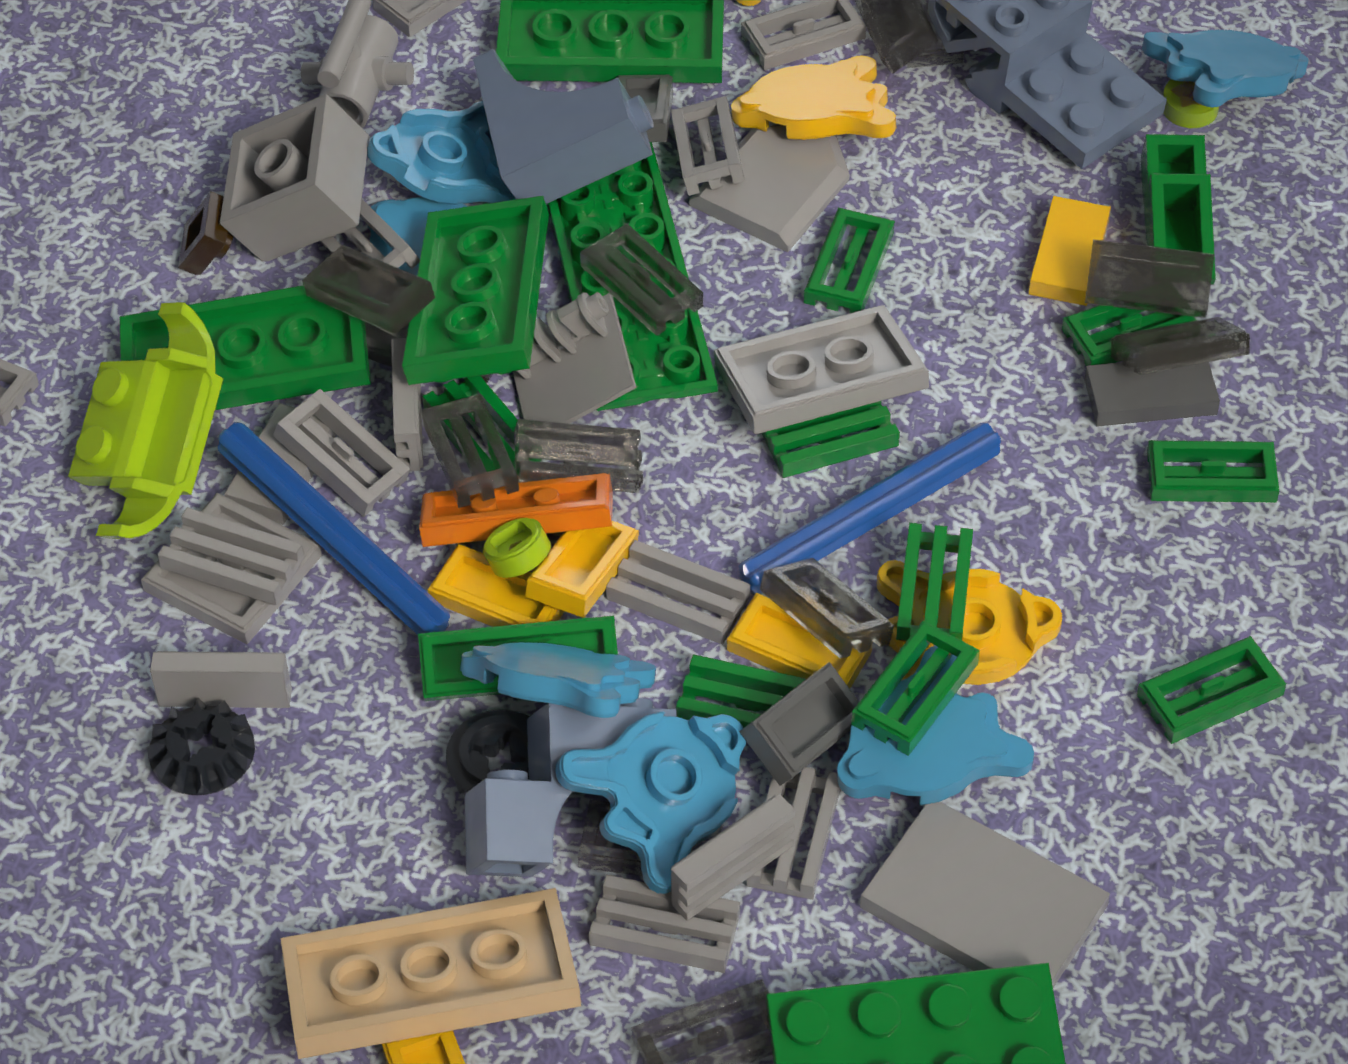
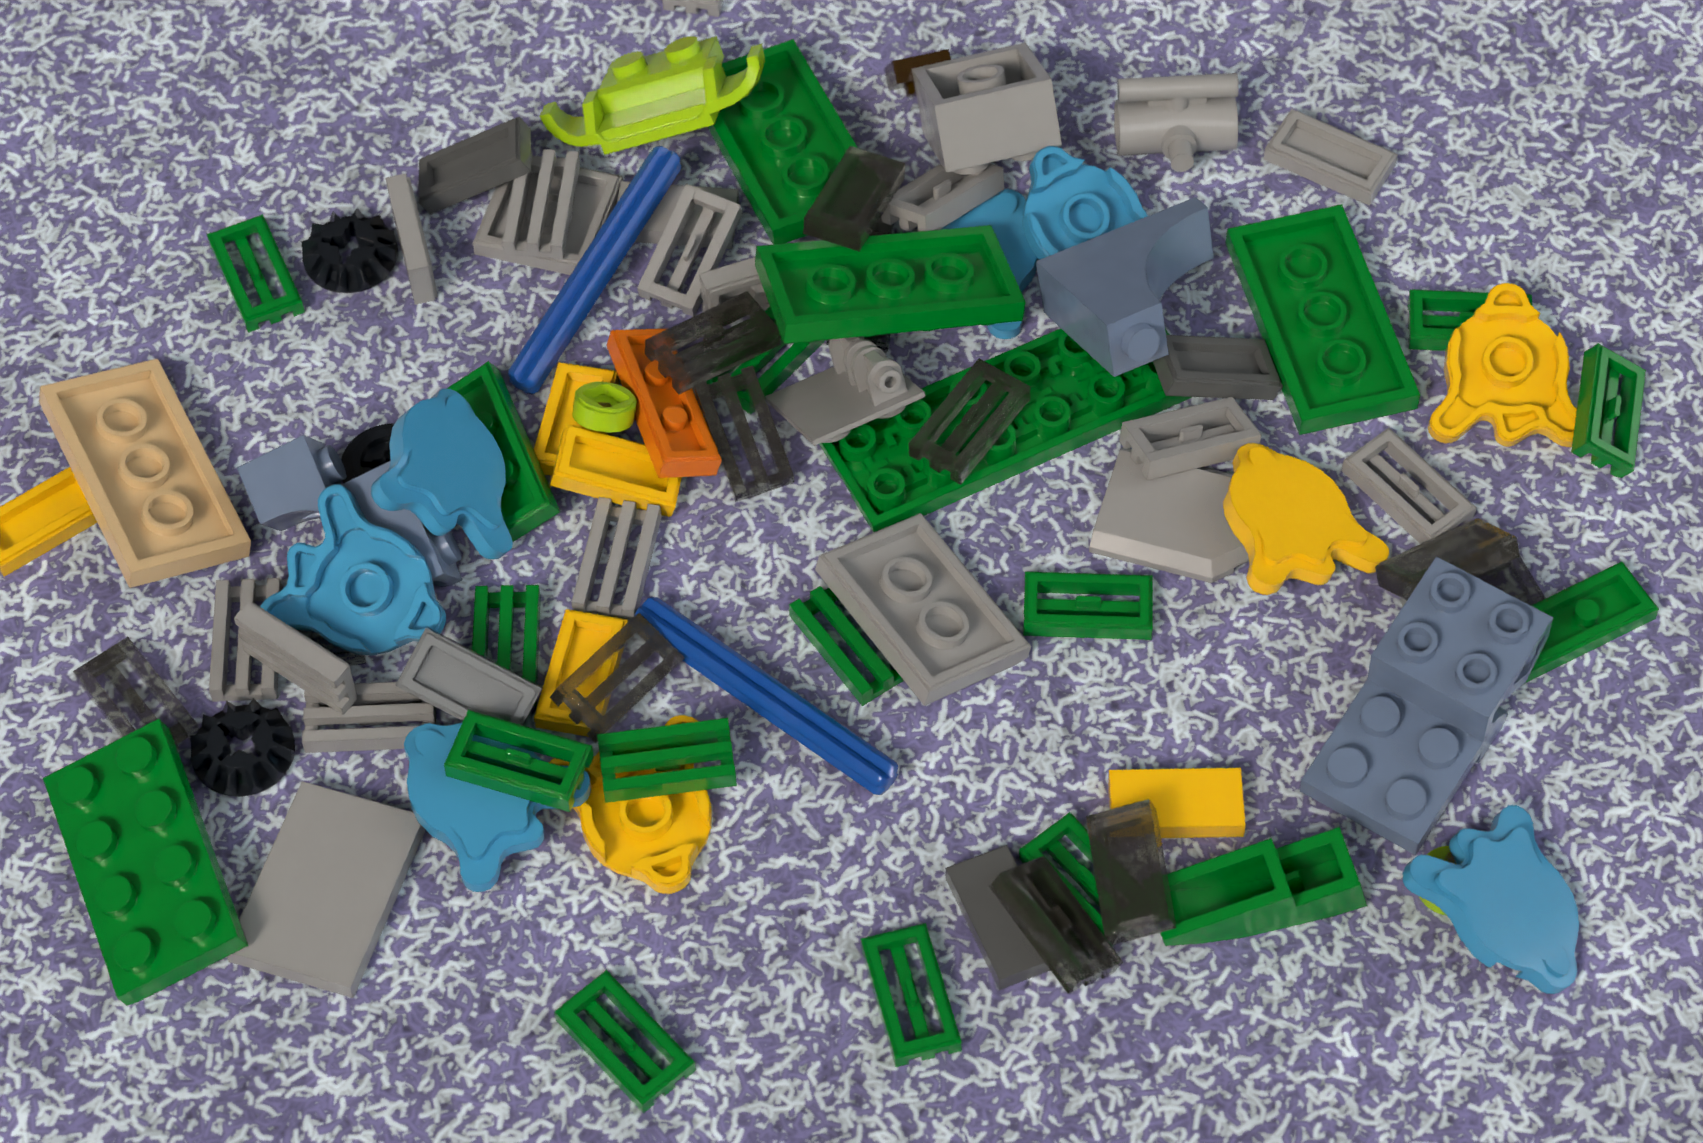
camera: 75 degrees right, 5 degrees up
(155, 599) = (474, 165): none -> dark grey tile
(189, 849) = (270, 308): none -> green tile
(782, 972) = (242, 772): none -> black gear

